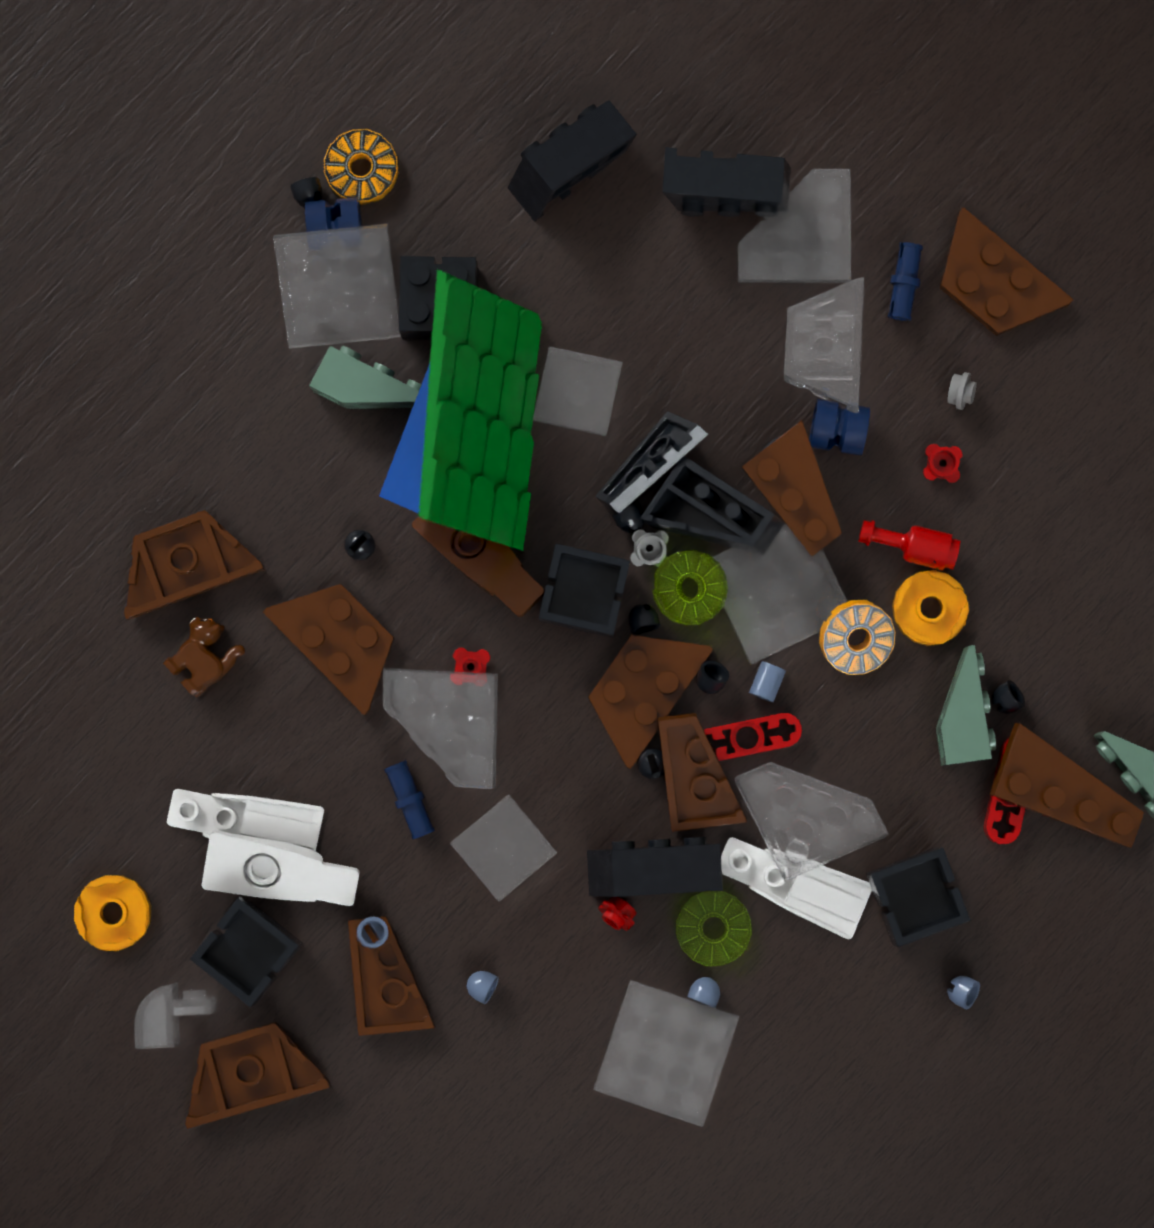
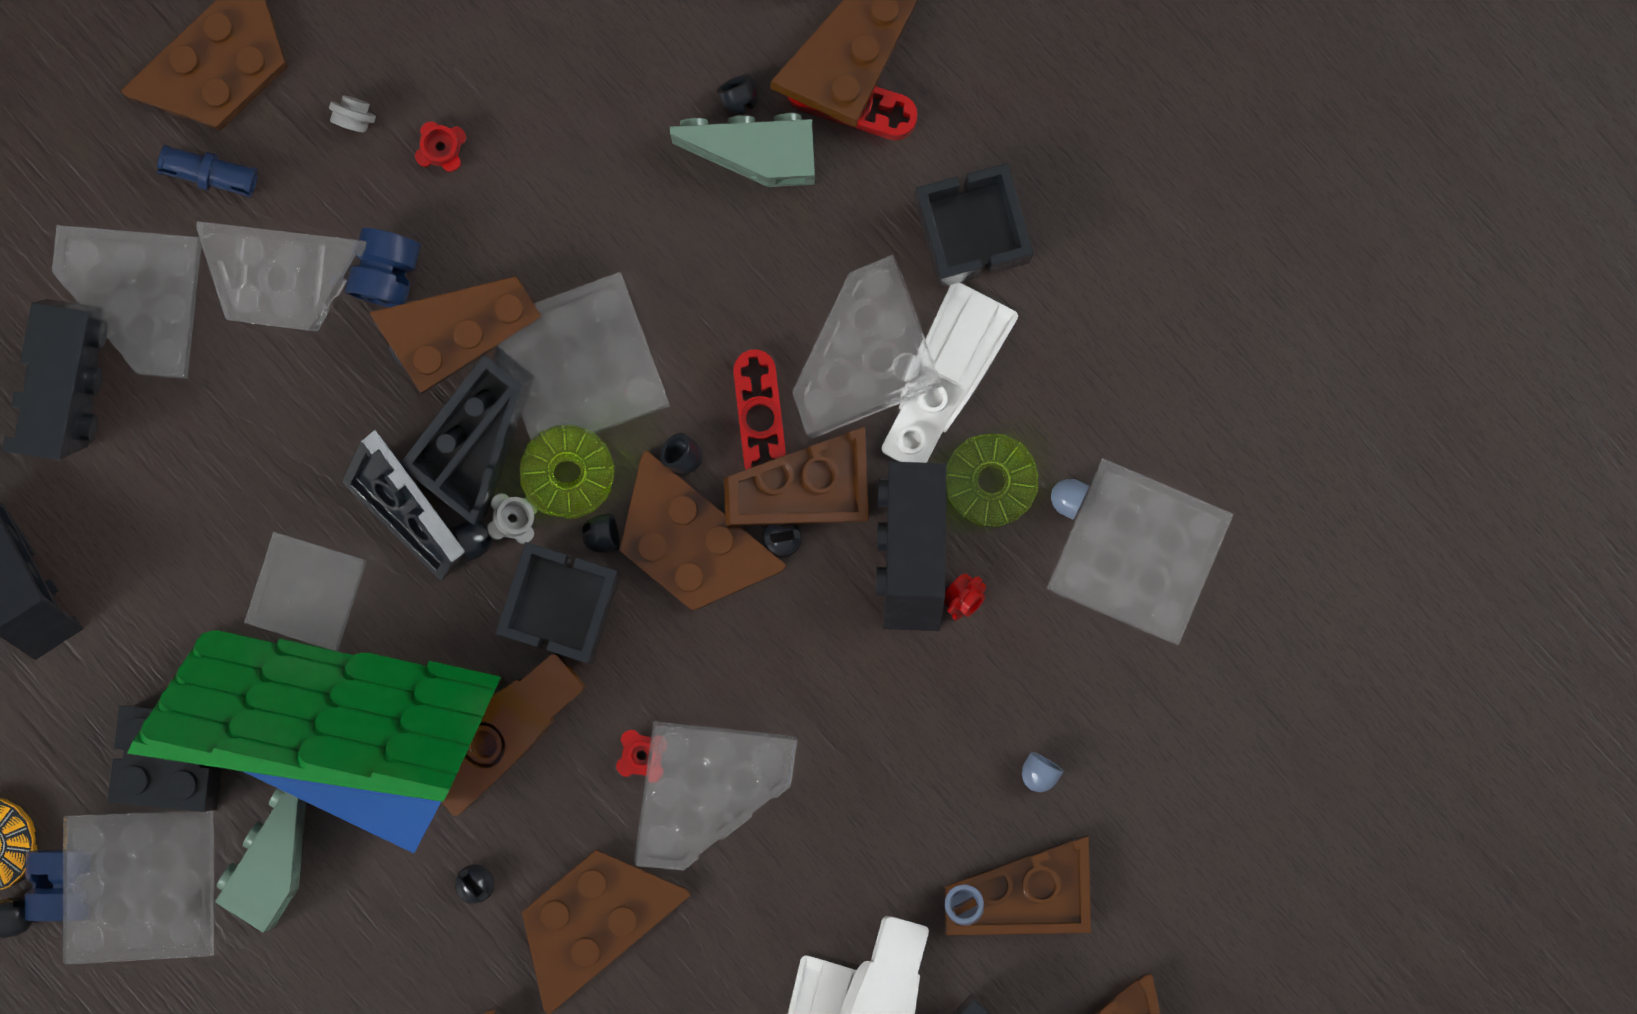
camera: 90 degrees left, 0 degrees up
(409, 799) = (802, 845): dark blue pin -> none
(503, 848) = (872, 732): clear plate -> none
(767, 681) = (692, 386): sand blue hinge -> none
(871, 652) = (667, 255): tile -> none
(908, 612) = (625, 205): light orange tile -> none
(919, 545) = (540, 185): red piece -> none
(964, 992) = (1093, 181): sand blue hinge -> none

